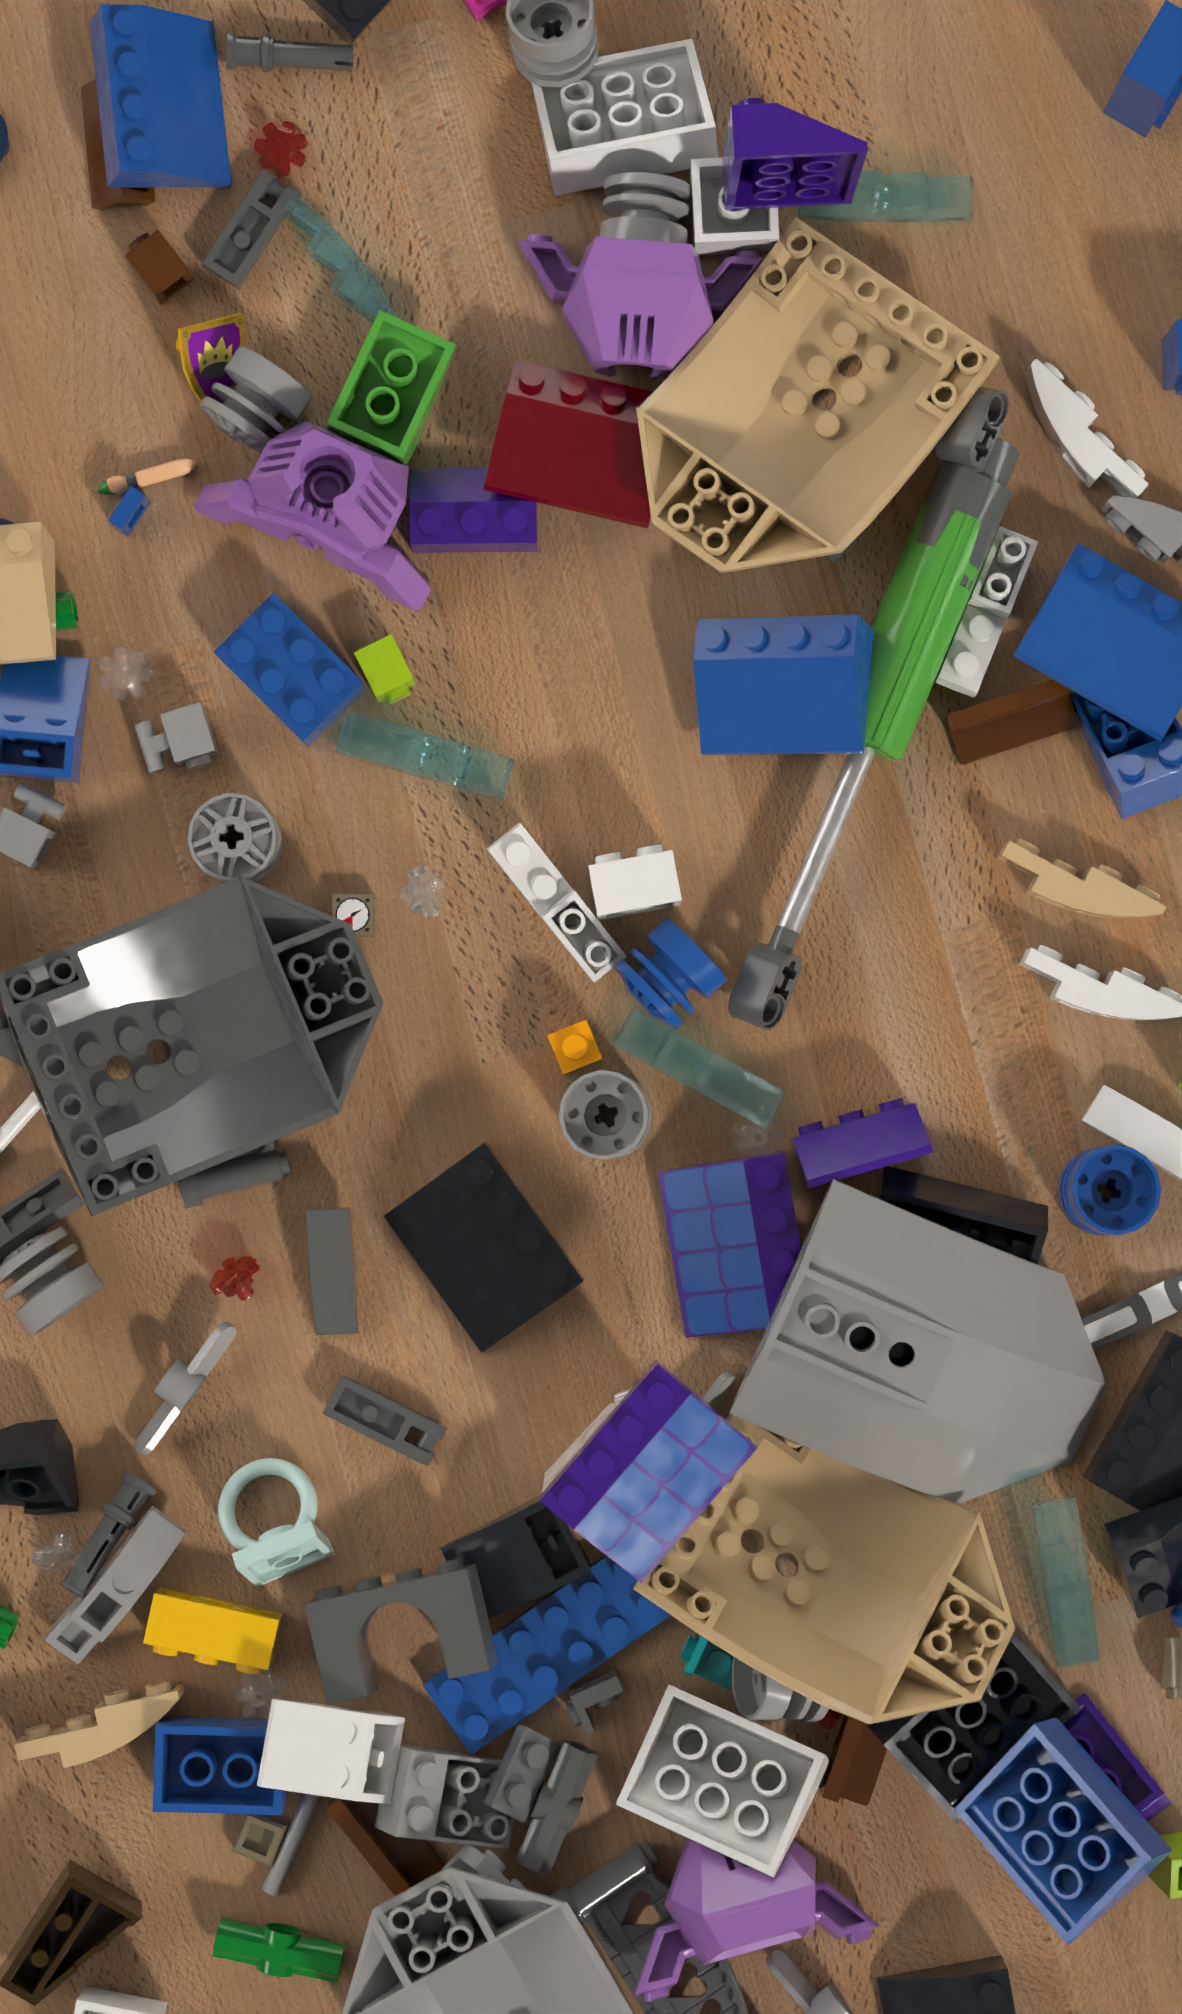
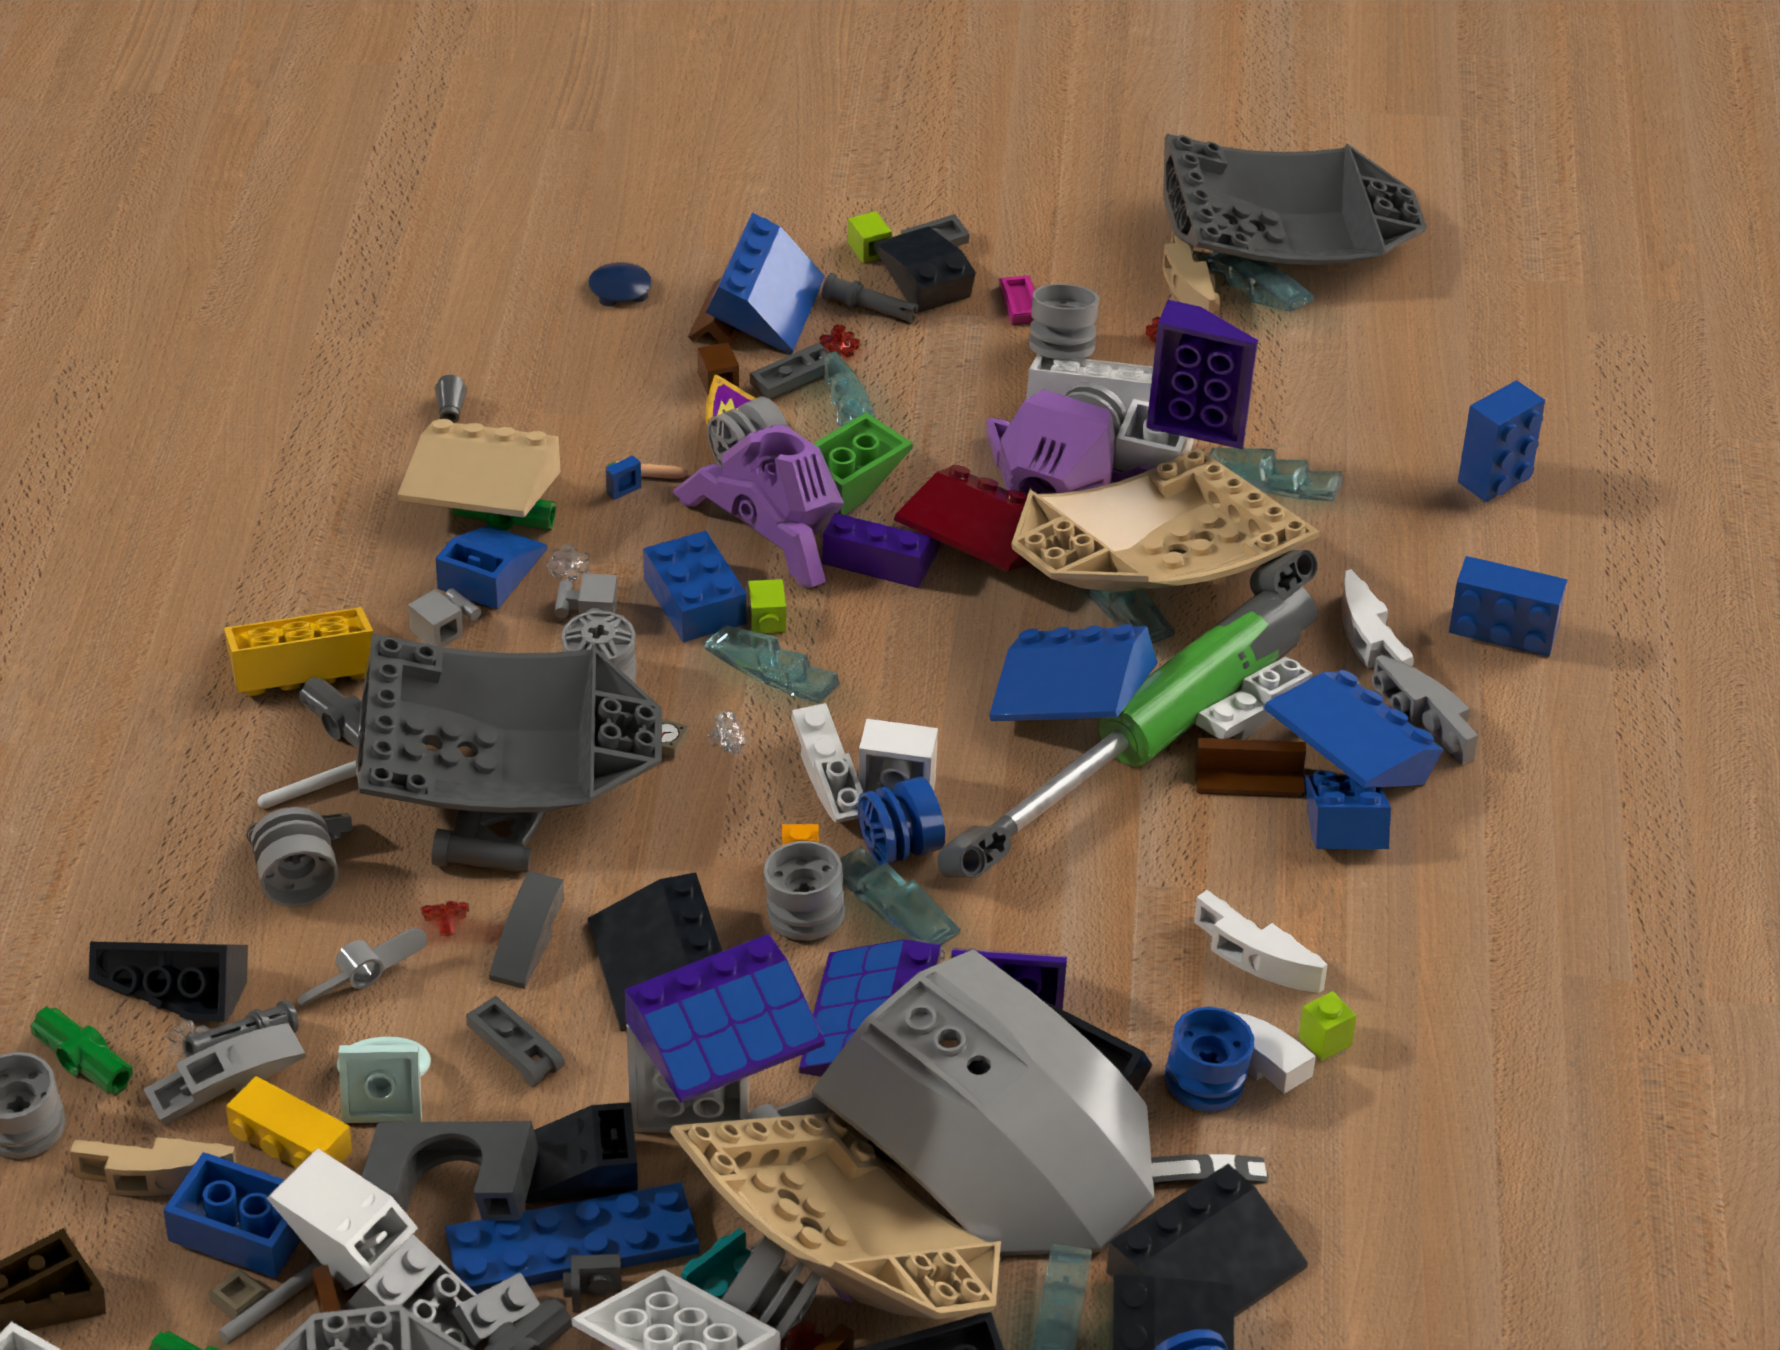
camera: 15 degrees right, 45 degrees down
(1095, 894) = (1270, 884): tan slope -> none

